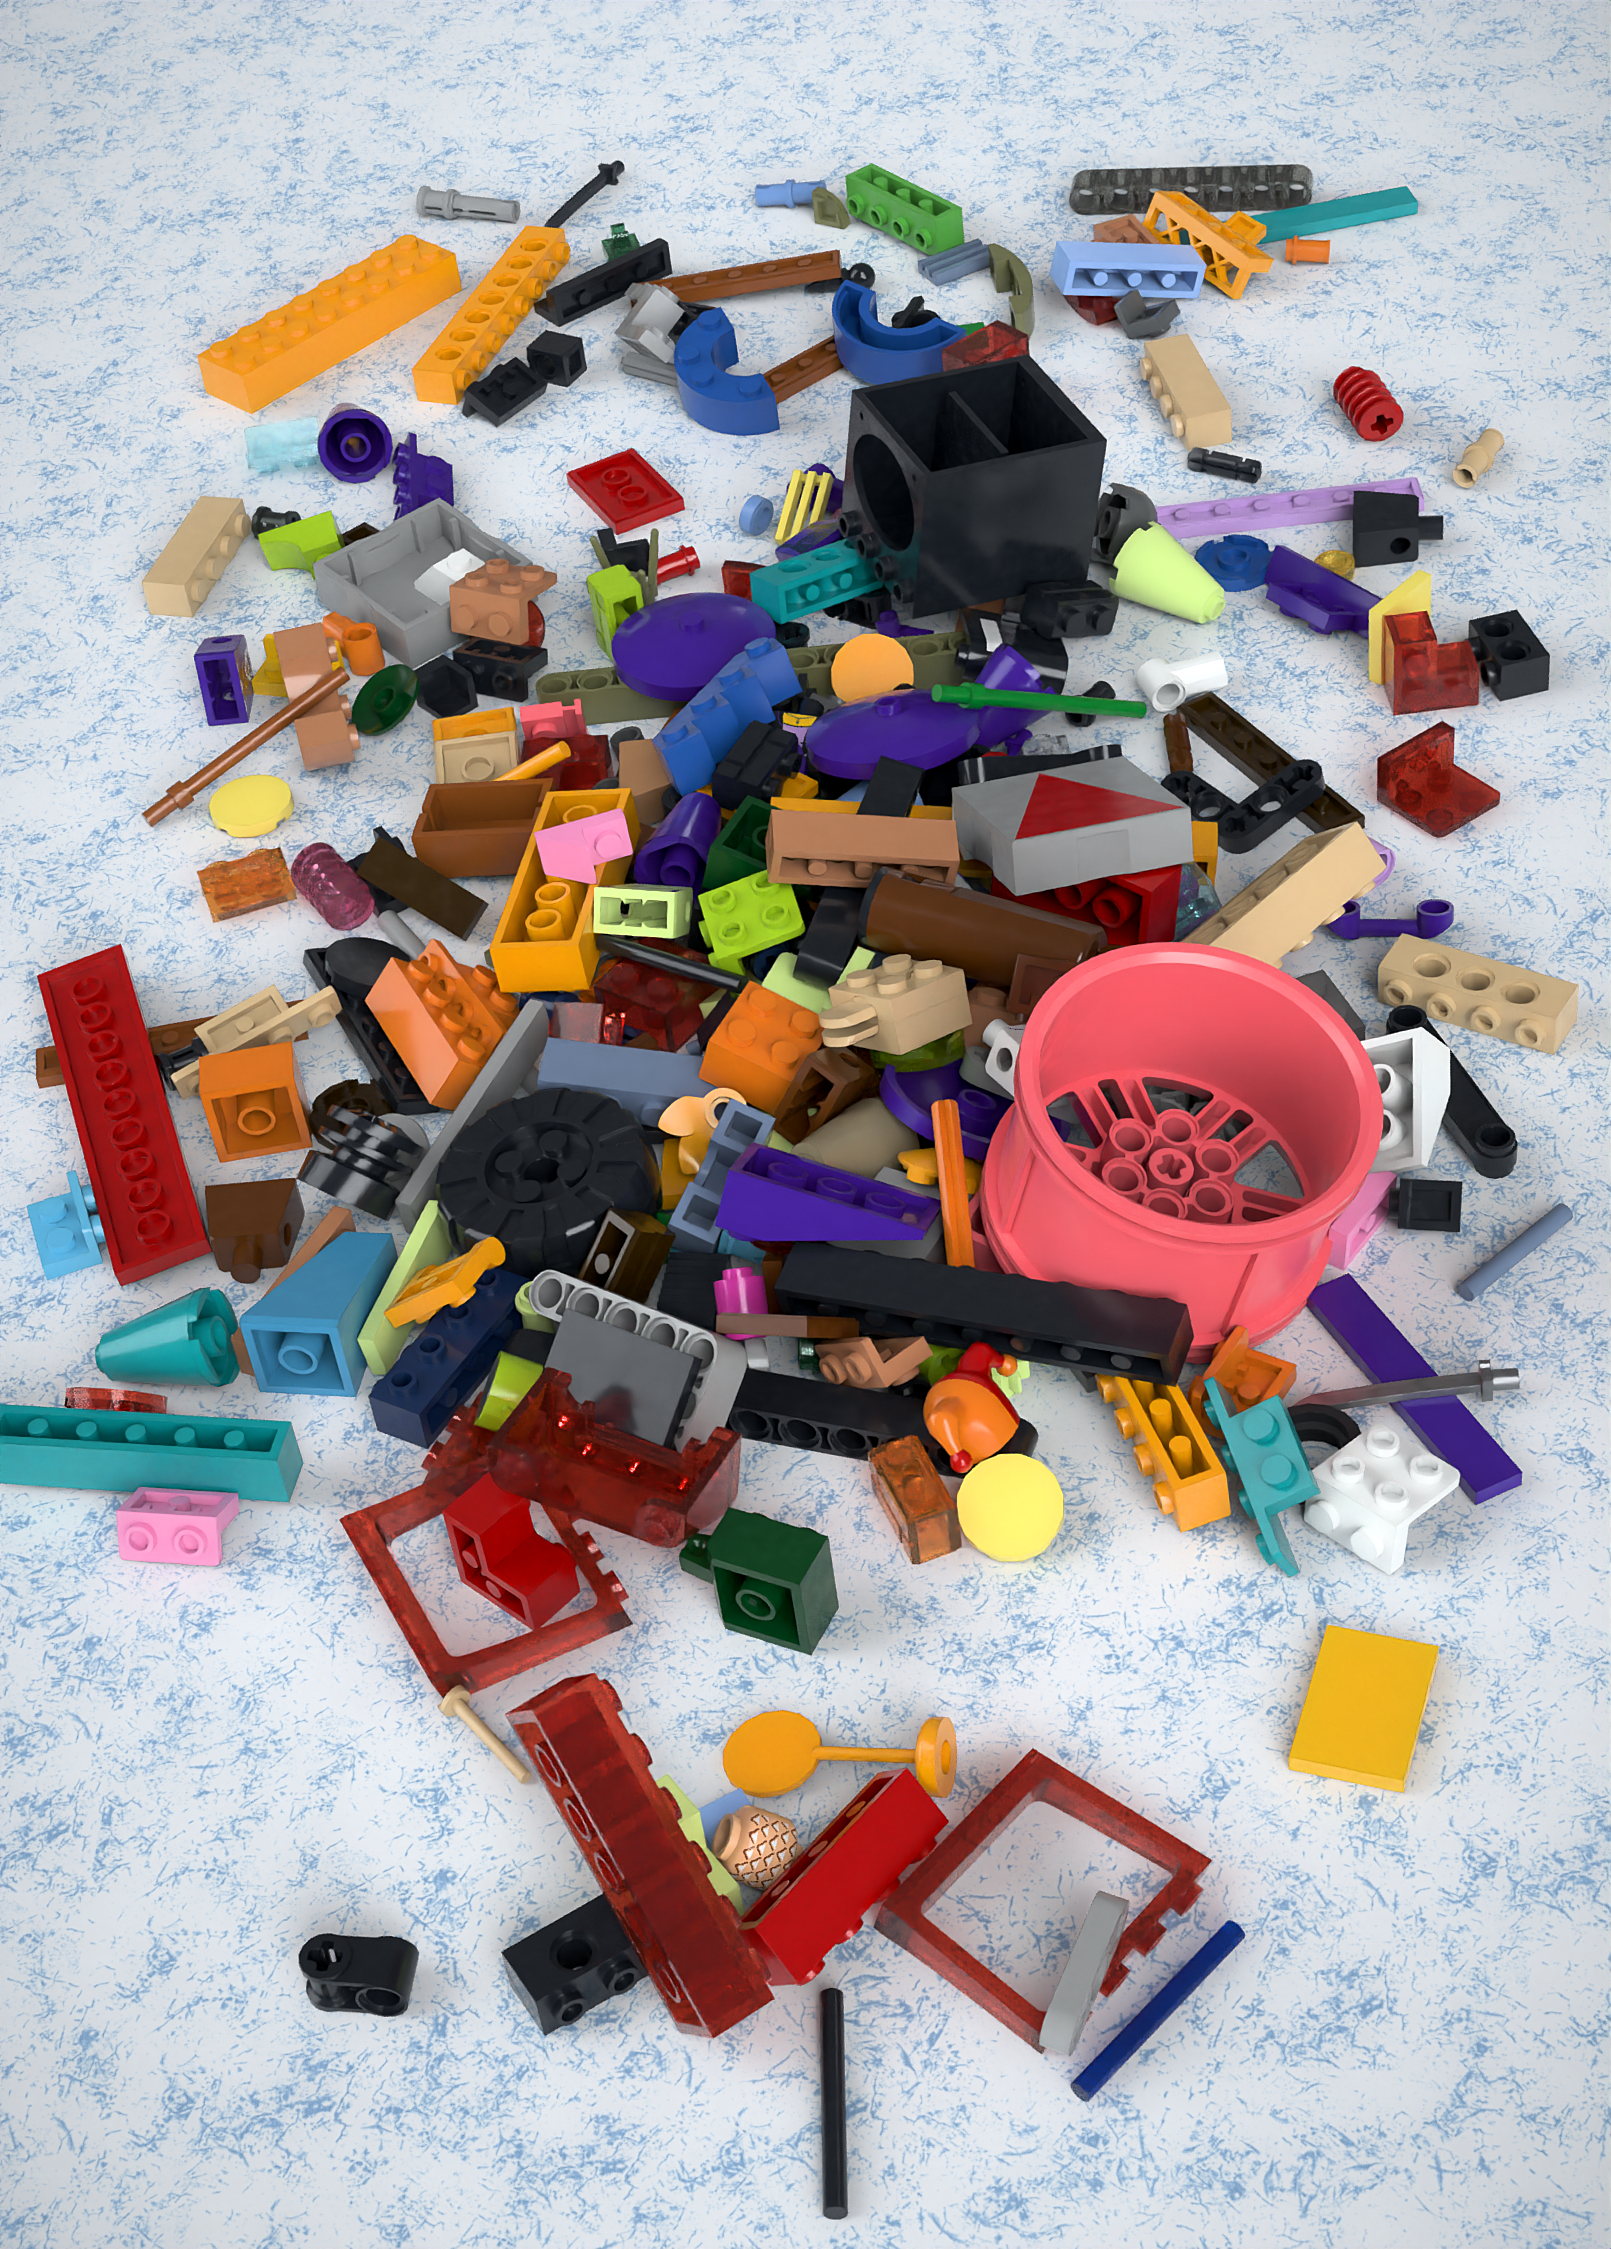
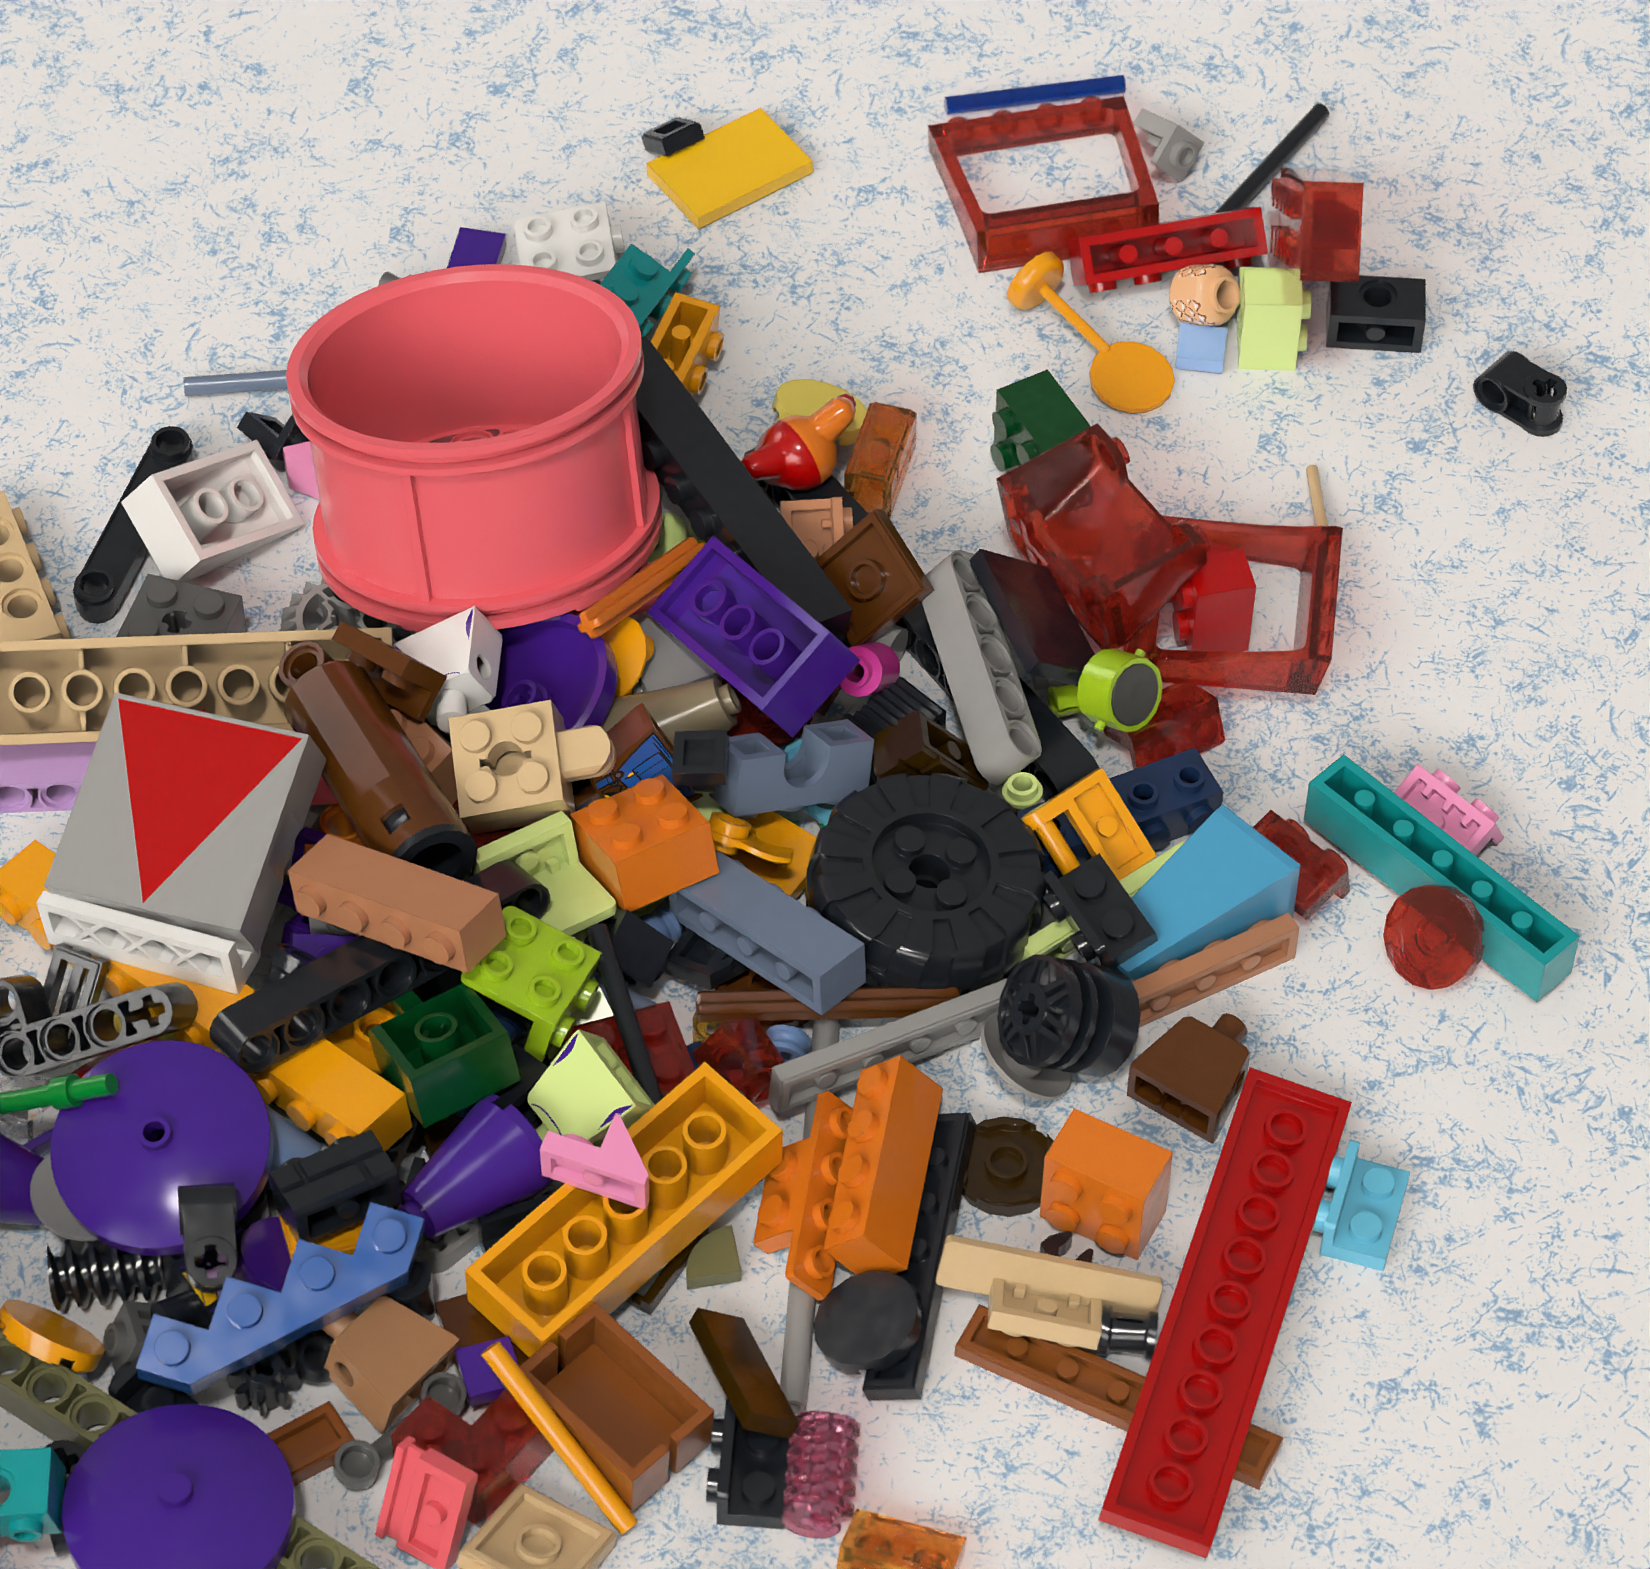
camera: 150 degrees left, 10 degrees up
(175, 1344) = (1351, 972): teal cone -> none
(282, 1395) = (1321, 870): none -> clear red bracket
(392, 1224) = (1100, 913): none -> black bracket
(765, 1086) = (700, 759): none -> black tile
(804, 701) = (207, 1226): none -> black piece
(953, 2019) = (1173, 144): none -> light grey bracket
(1084, 1973) = (1047, 100): light grey beam -> none
(1447, 1689) = (672, 136): none -> black tile

